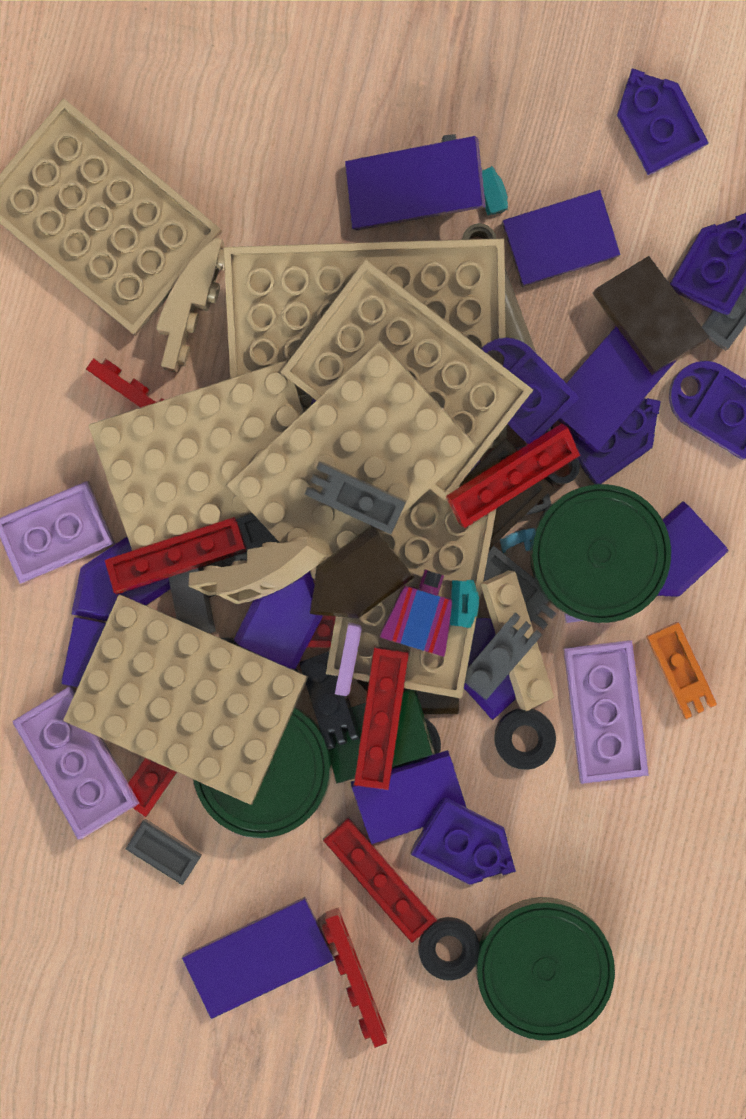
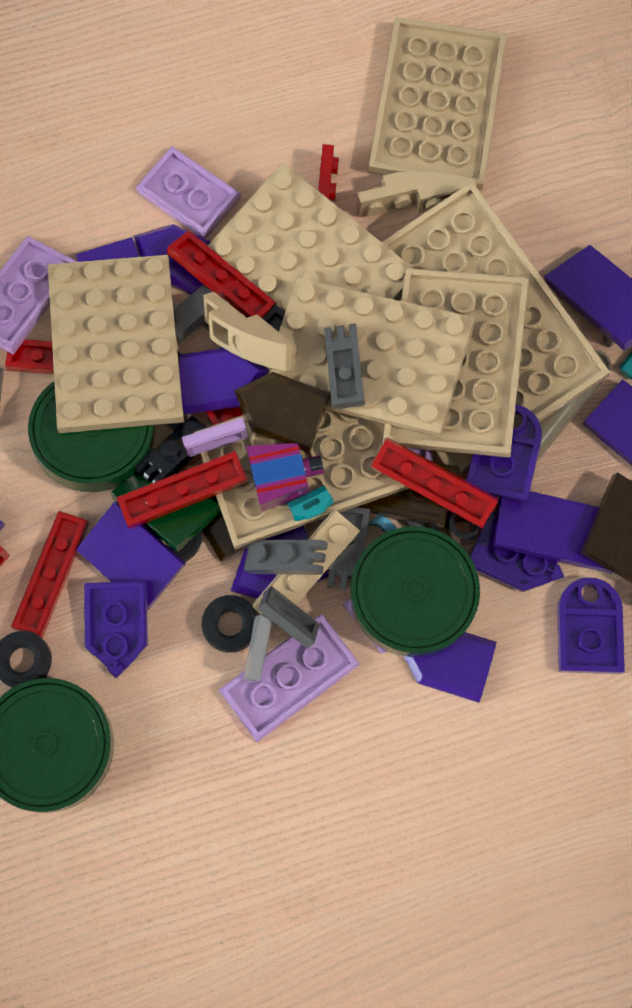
camera: 55 degrees right, 15 degrees down
(561, 688) = (289, 617): none -> dark grey tile
(569, 730) = (257, 648): none -> light grey tile
(680, 668) = (360, 716): orange hinge -> none

